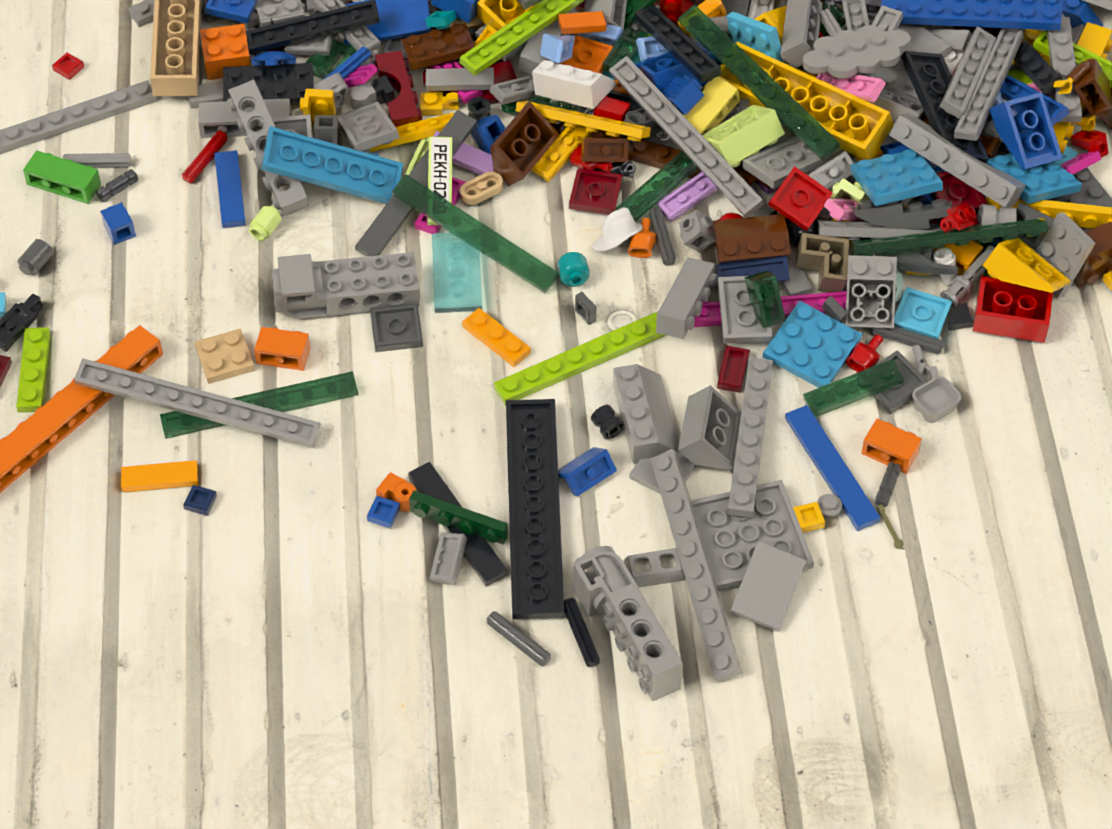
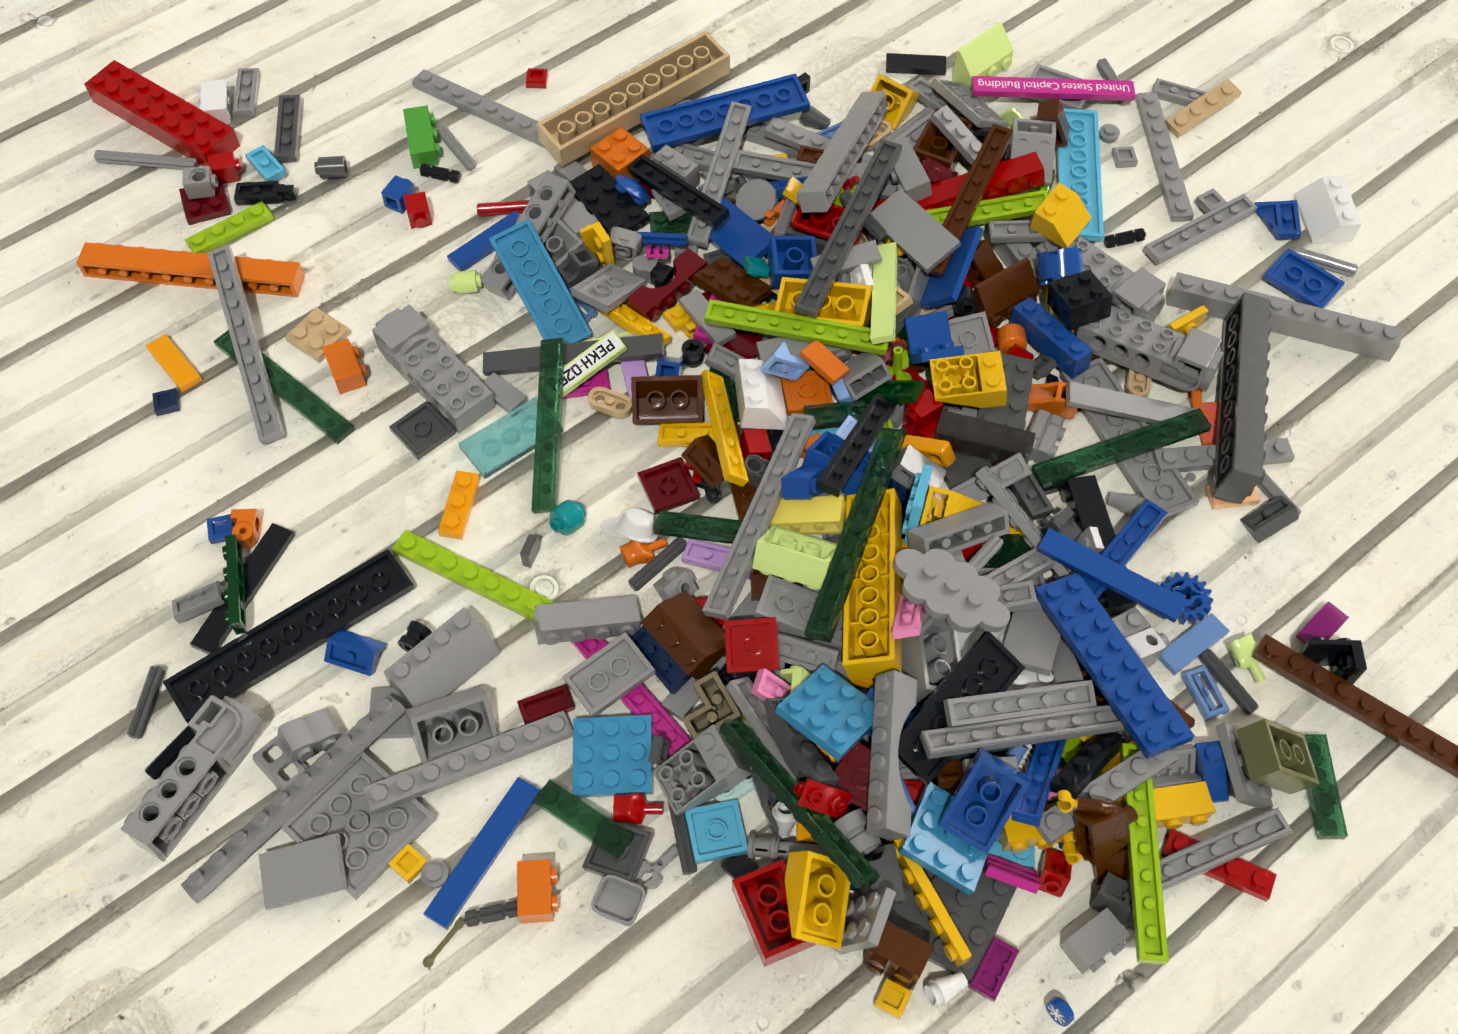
camera: 55 degrees right, 5 degrees up
(150, 218) = (418, 210): none -> red brick
(420, 248) = (504, 393): none -> light grey tile
(648, 529) = (308, 735): none -> light grey brick
(765, 298) = (619, 682): clear green slope -> none

